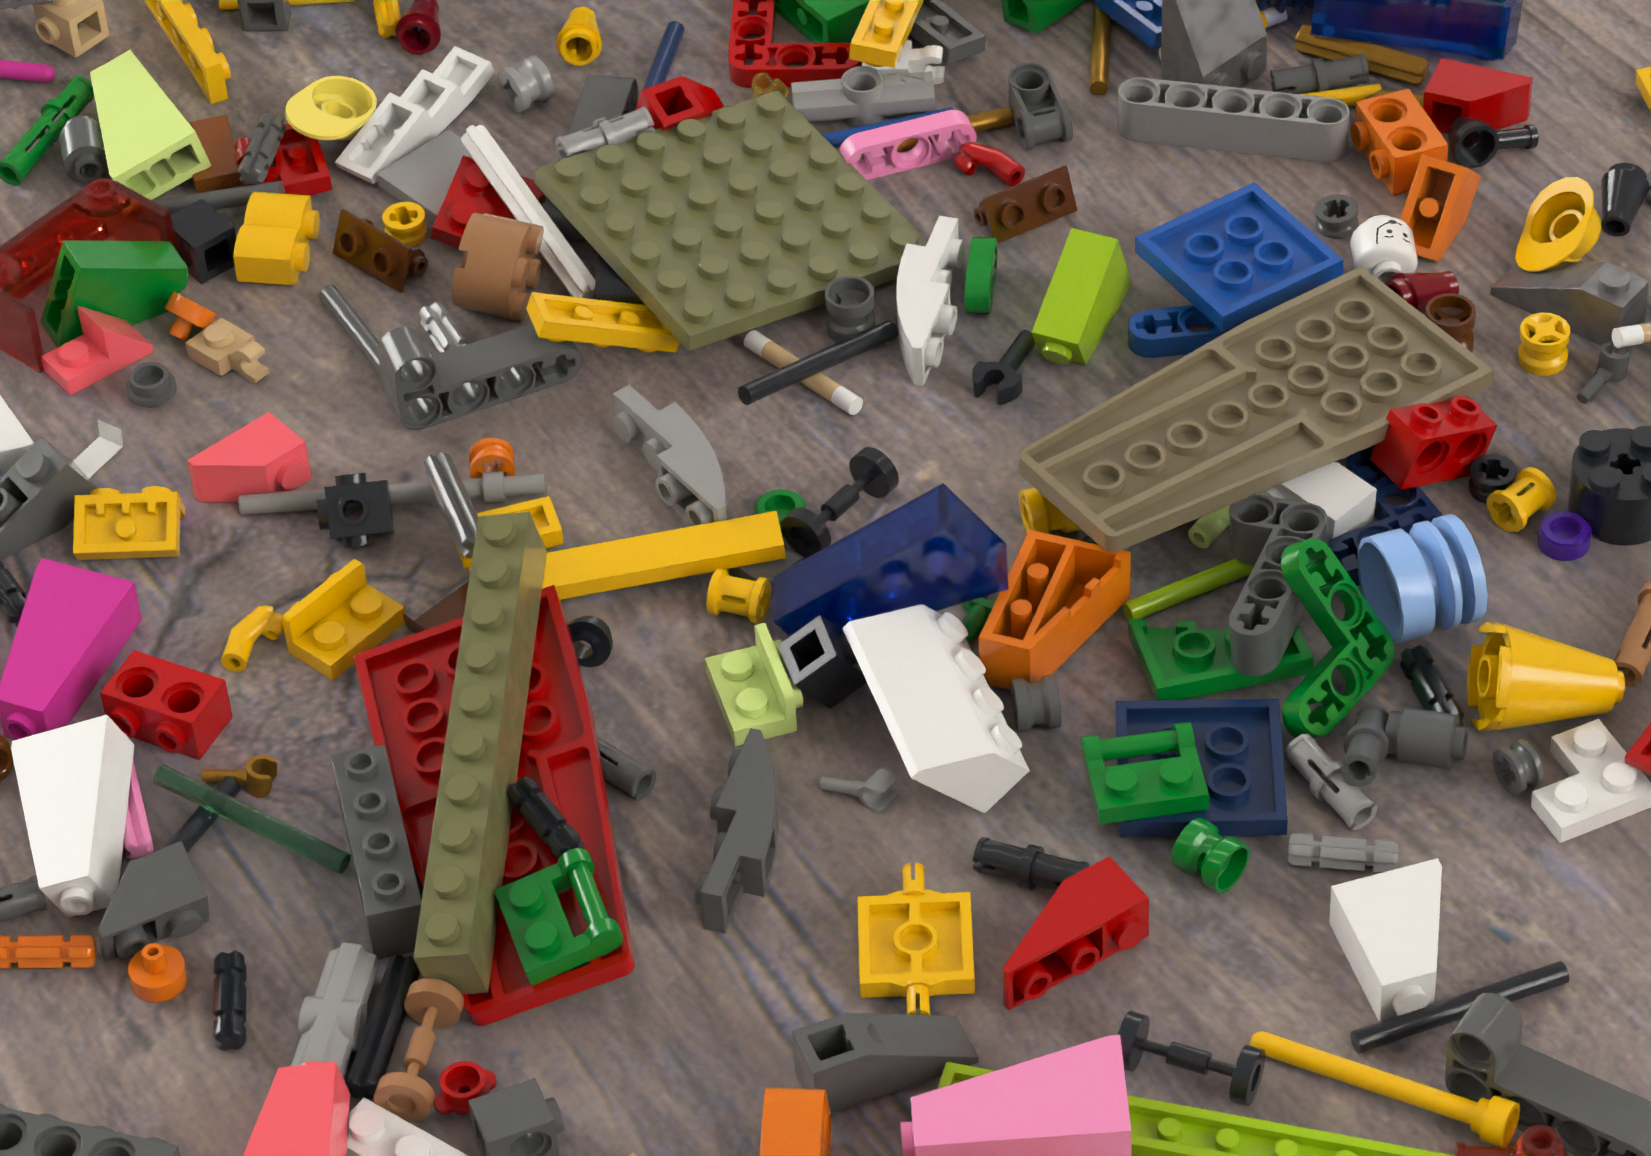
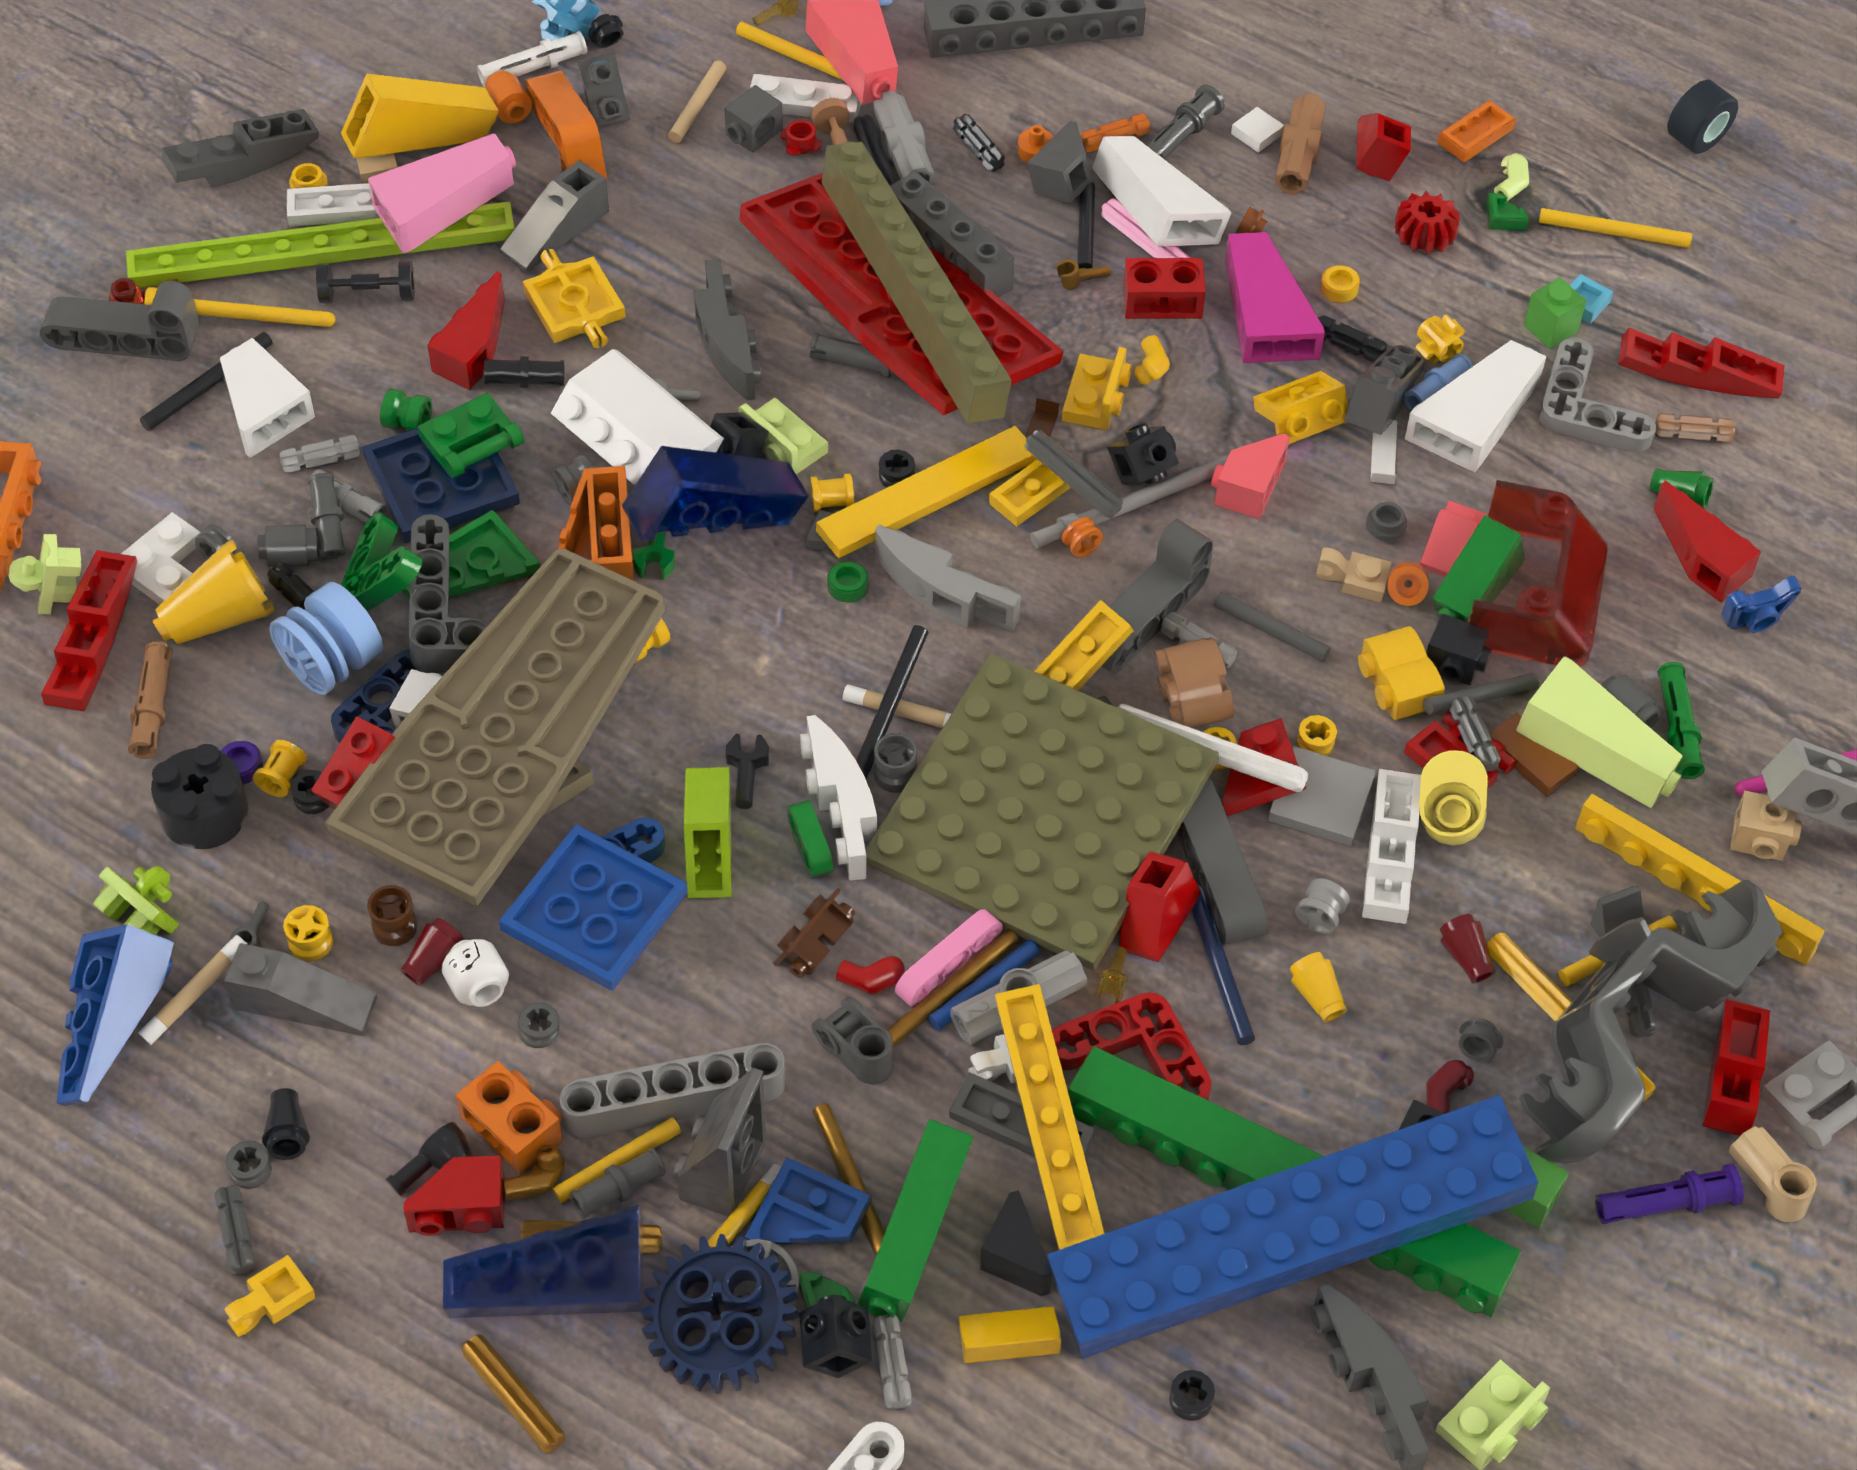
camera: 150 degrees right, 10 degrees up
(252, 818) = (1061, 237): clear green bar -> none
(376, 251) = (1299, 692): reddish brown hinge -> none
(541, 925) = (799, 210): green plate -> none
(543, 816) = (843, 257): black axle -> none
(594, 632) = (916, 424): black plate -> none
(605, 133) = (1205, 802): light grey pin -> none
(643, 610) = (892, 459): none -> black bush
(872, 474) = (791, 619): black wheel -> none
(1438, 204) = (447, 1050): orange slope -> none
(1559, 226) = (327, 1042): yellow piece -> none

